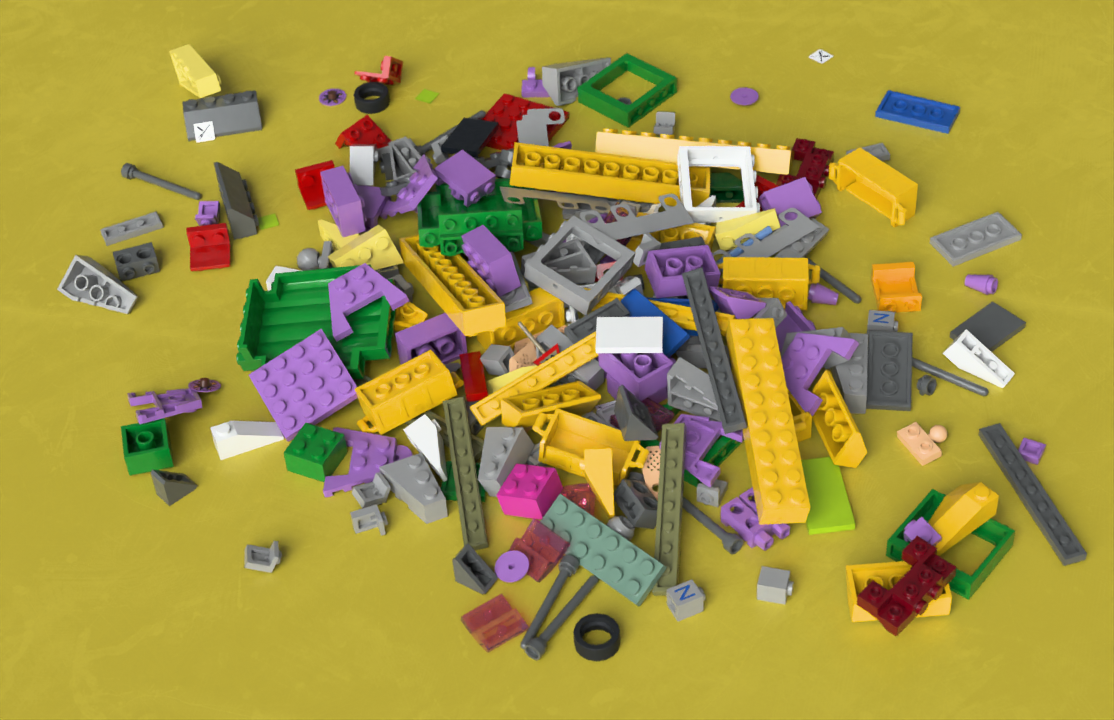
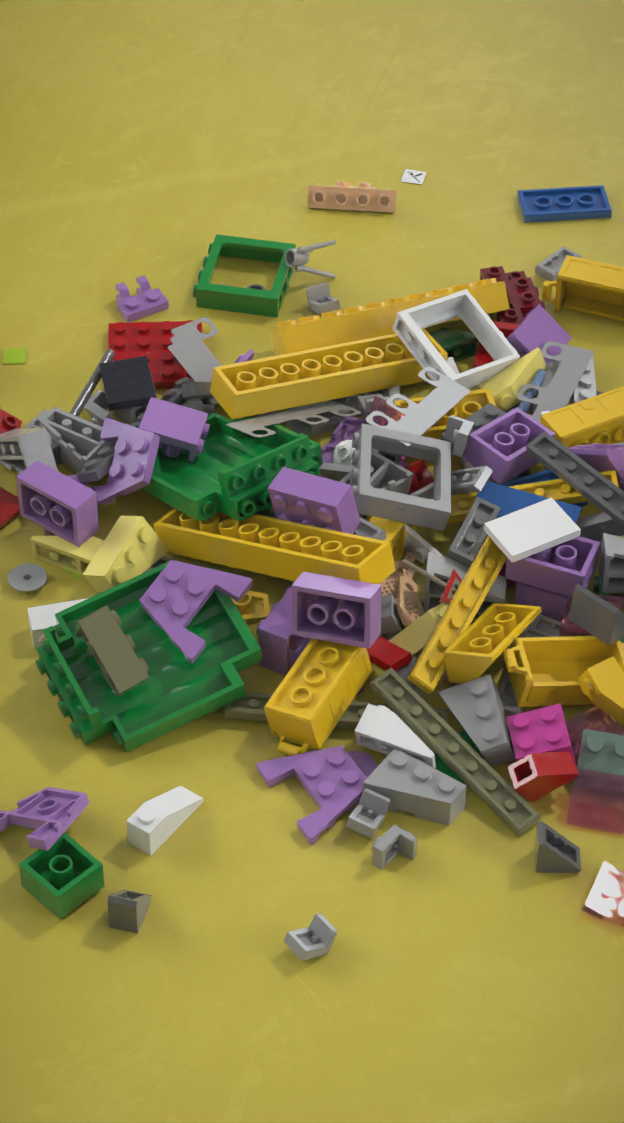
camera: 35 degrees left, 0 degrees up
(204, 385) = (57, 779): piece -> none
(284, 310) = (112, 650): none -> olive wedge
(299, 244) = (27, 577): none -> light grey piece
(304, 384) = (192, 728): medium lavender plate -> none
(308, 259) = (54, 588): light grey piece -> none
(315, 452) = (265, 799): green brick -> none
(323, 261) = (74, 580): light grey plate -> none
(439, 337) = (336, 609): none -> medium lavender brick
(507, 513) = (542, 773): none -> red slope
(511, 566) = (586, 829): medium lavender piece -> none
(563, 79) = (174, 281): light grey wedge -> none
(666, 87) = (299, 257): none -> light grey plant
(744, 96) = (376, 243): medium lavender piece -> none
(755, 57) = (352, 197): none -> light nougat bracket

